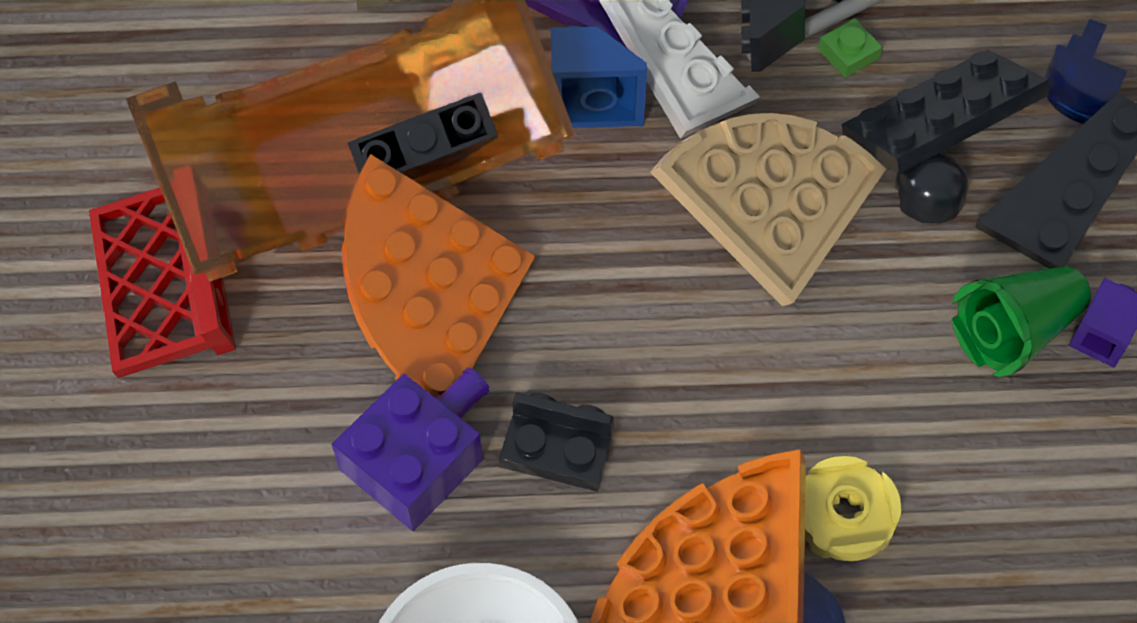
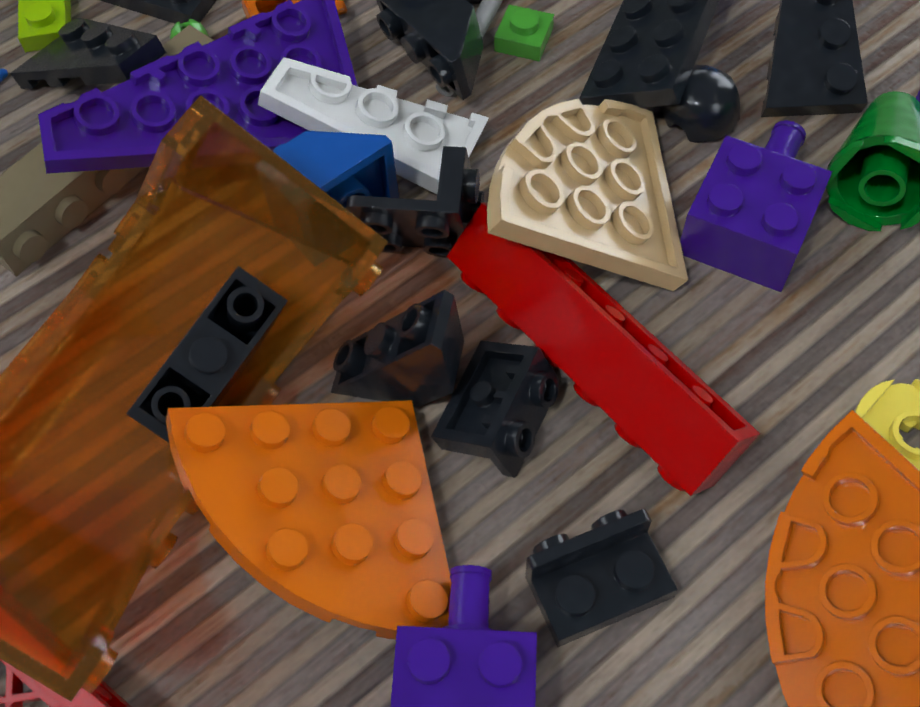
camera: 35 degrees left, 0 degrees up
(550, 223) = (404, 357): none -> black slope
(589, 298) = (499, 405): none -> black bracket
(645, 145) = (426, 222): none -> black bracket
(682, 319) = (608, 356): none -> red brick
(889, 284) = (755, 207): none -> dark purple brick

